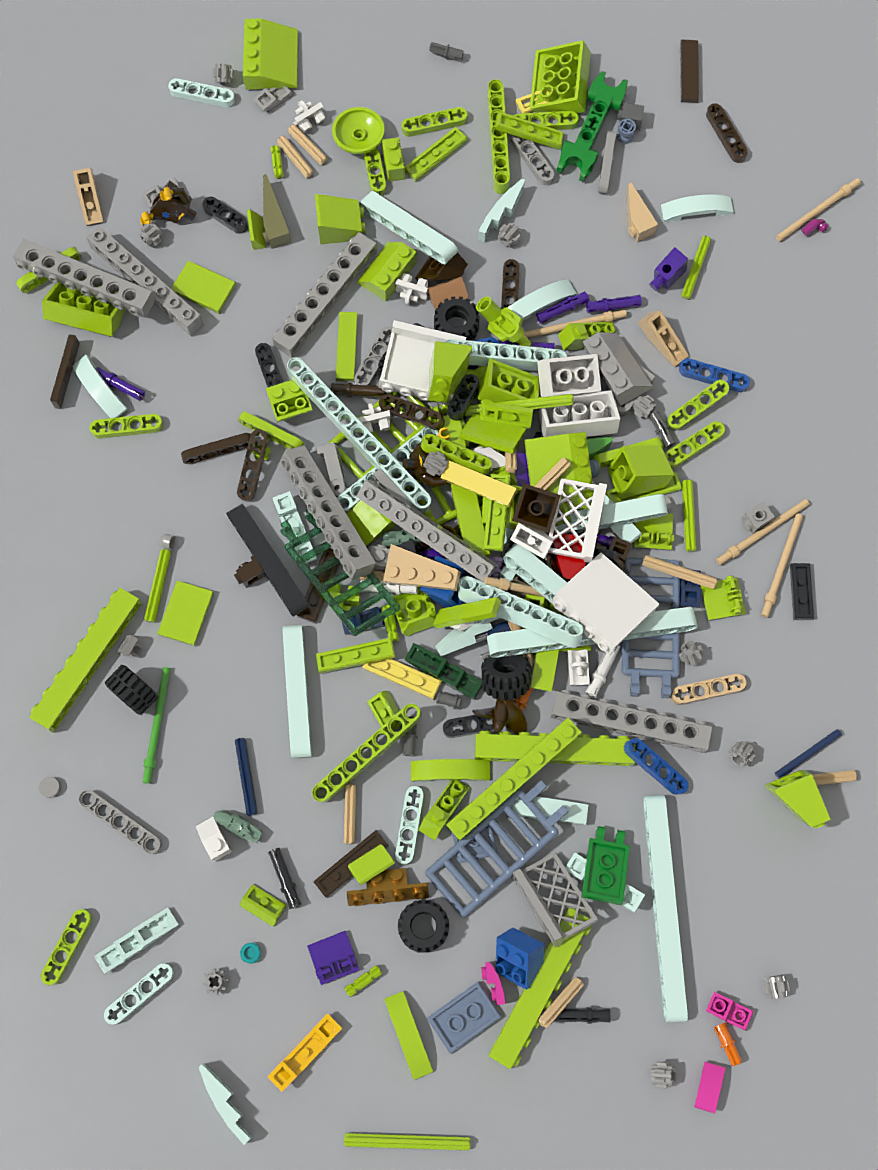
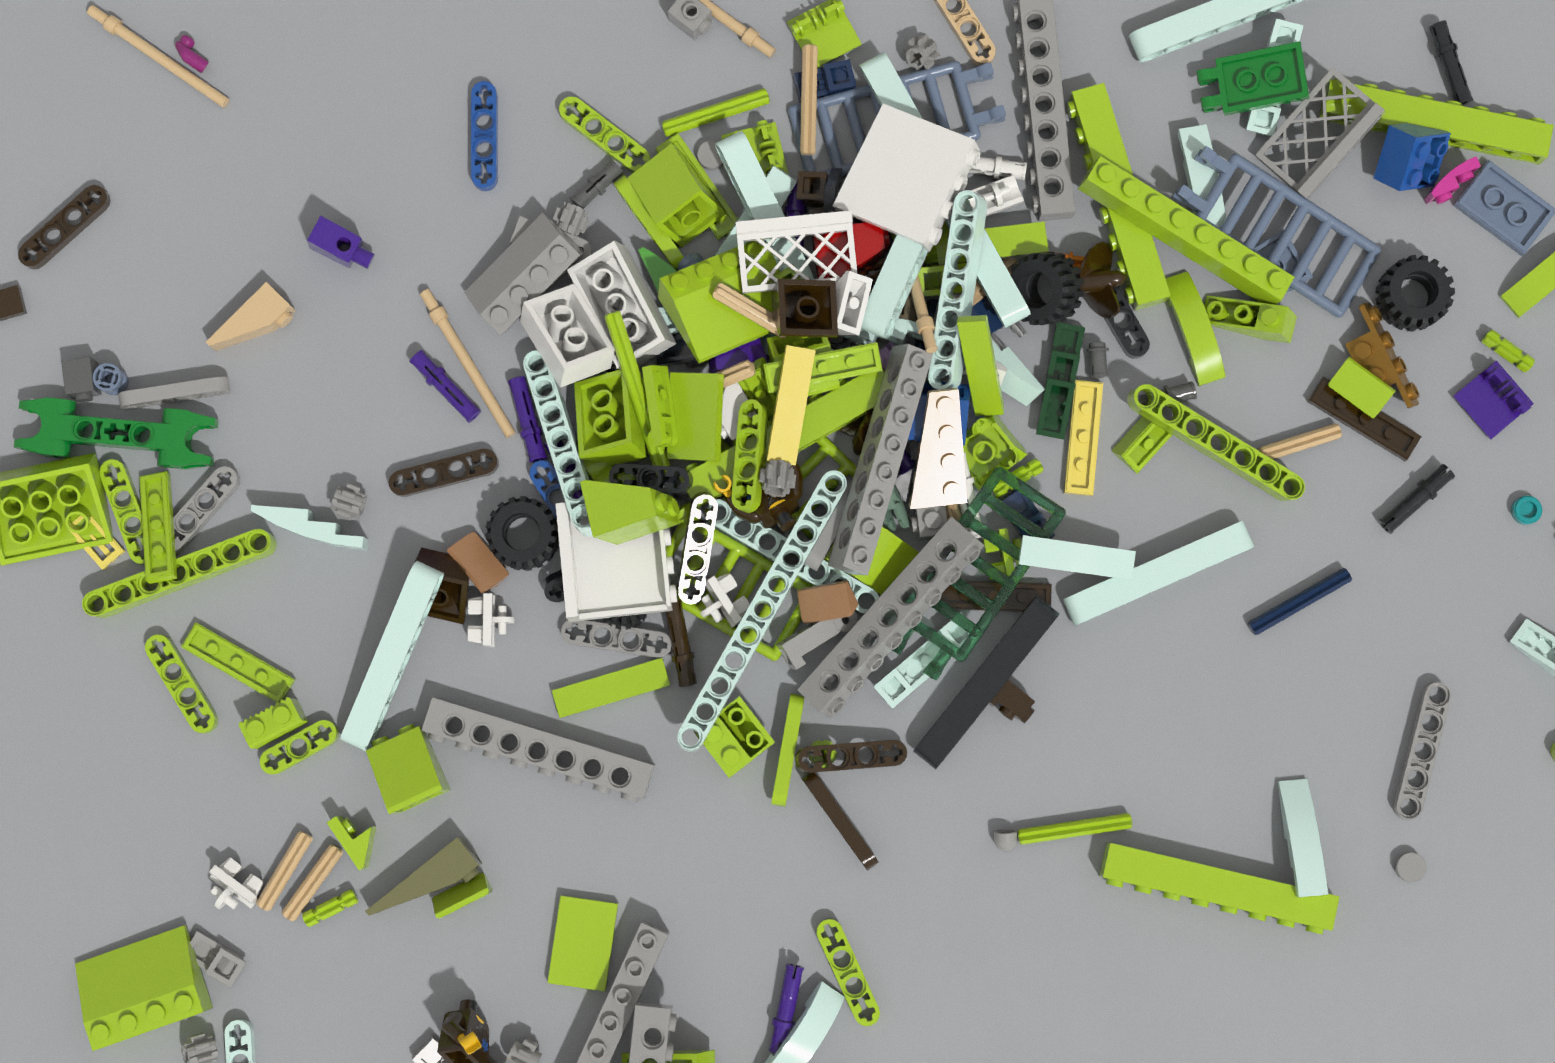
camera: 105 degrees left, 10 degrees up
(94, 721) = (1302, 837): none -> light aqua slope
(127, 646) = (1178, 835): light grey tile -> none
(131, 689) = (1246, 799): black tyre -> none
(150, 762) = (1327, 741): bright green bar -> none
(185, 613) = (1100, 773): lime tile -> none
(213, 839) = (1400, 613): white slope -> none
(228, 222) = (436, 974): black beam -> none
(238, 826) = (1370, 586): sand green hinge -> none
(262, 905) = (1459, 516): lime slope -> none
(271, 360) = (662, 799): black beam -> none
(306, 182) = (358, 847): none -> lime slope
(322, 634) = (1076, 557): none -> light aqua slope
(350, 477) = (826, 602): none -> medium nougat slope
(355, 655) = (1078, 502): lime tile -> none
(358, 123) = (222, 799): lime dish -> none
(387, 268) = (464, 670): lime slope -> none
(409, 825) = (1285, 354): light aqua beam -> none
(446, 51) = (46, 706): dark grey axle -> none
(502, 322) = (509, 459): lime piece -> none
(542, 298) = (446, 419): light aqua slope -> none
(560, 1002) = (1446, 88): tan axle -> none
(574, 333) = (480, 336): lime slope -> none
(615, 303) = (420, 322): dark purple pin -> none
(657, 764) = (1098, 54): blue beam -> none
(663, 337) = (448, 225): tan slope -> none
(696, 205) = (211, 236): light aqua slope -> none
(696, 267) = (308, 209): lime axle -> none
(698, 405) = (539, 148): lime beam -> none

